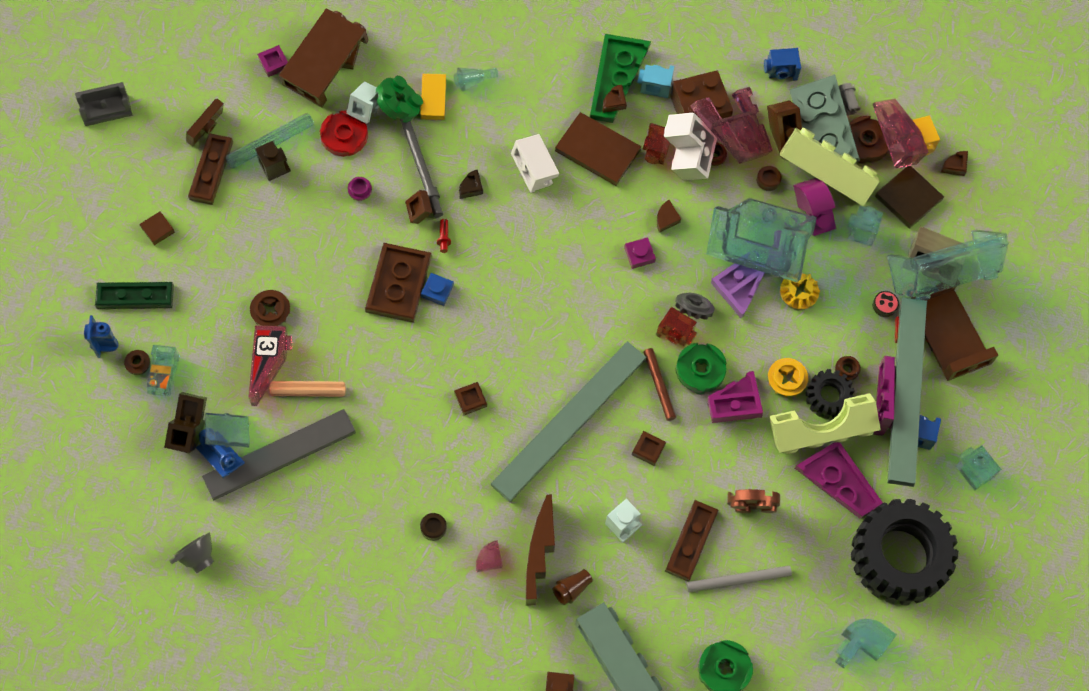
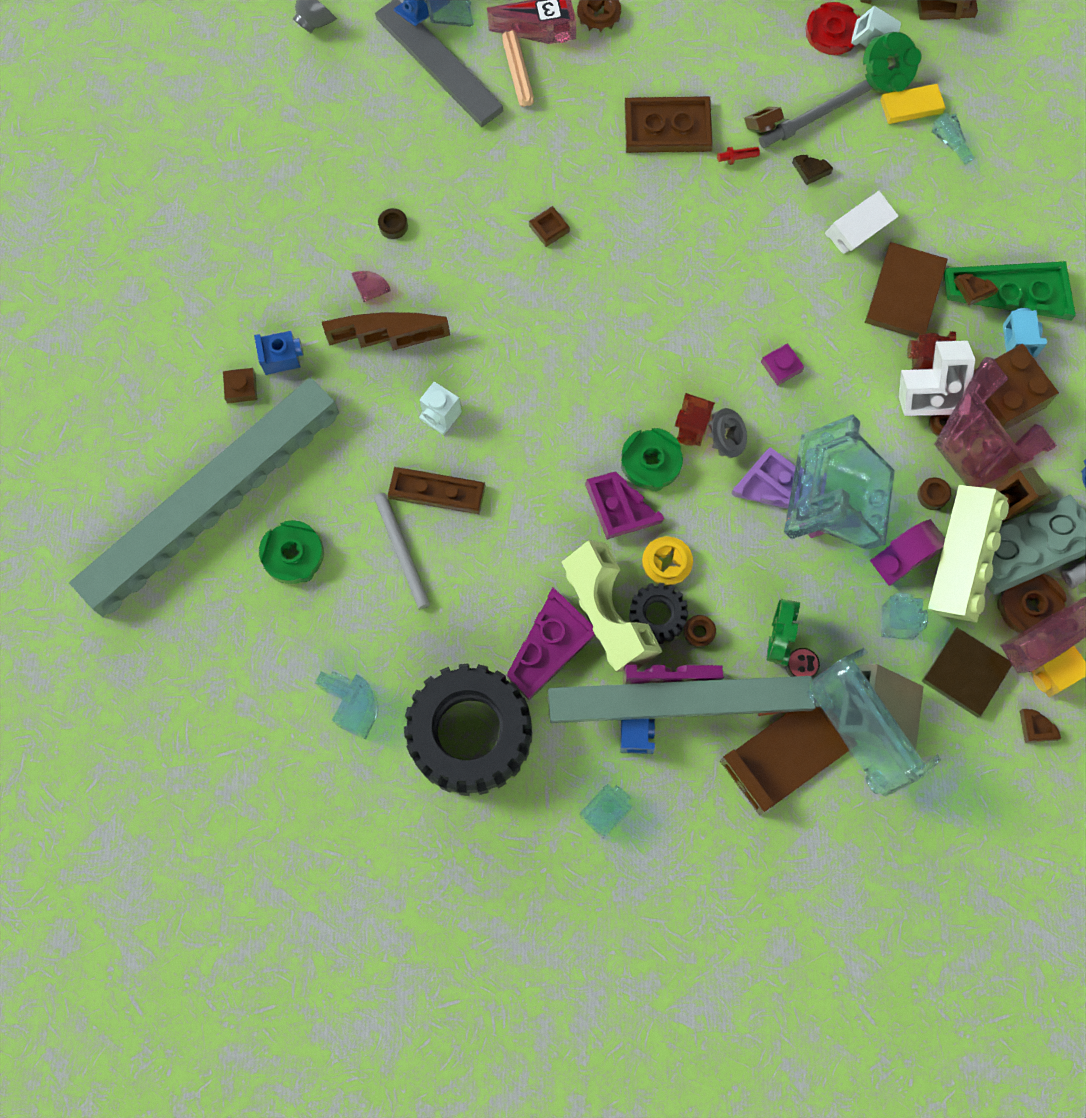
camera: 85 degrees right, 5 degrees up
(359, 188) = (769, 58): magenta plate -> none
(437, 289) = (670, 163): blue plate -> none
(538, 654) = (278, 352): none -> blue brick
(568, 422) = (550, 332): sand green tile -> none
(571, 587) = (351, 371): reddish brown cone -> none
(648, 448) = (537, 422): reddish brown tile -> none
(659, 384) = (619, 418): copper bar -> none
(667, 216) = (840, 384): reddish brown tile -> none
(753, 499) = (490, 542): copper plate -> none
(803, 300) = (776, 561): yellow gear -> none
(865, 306) = (783, 631): none -> green plate

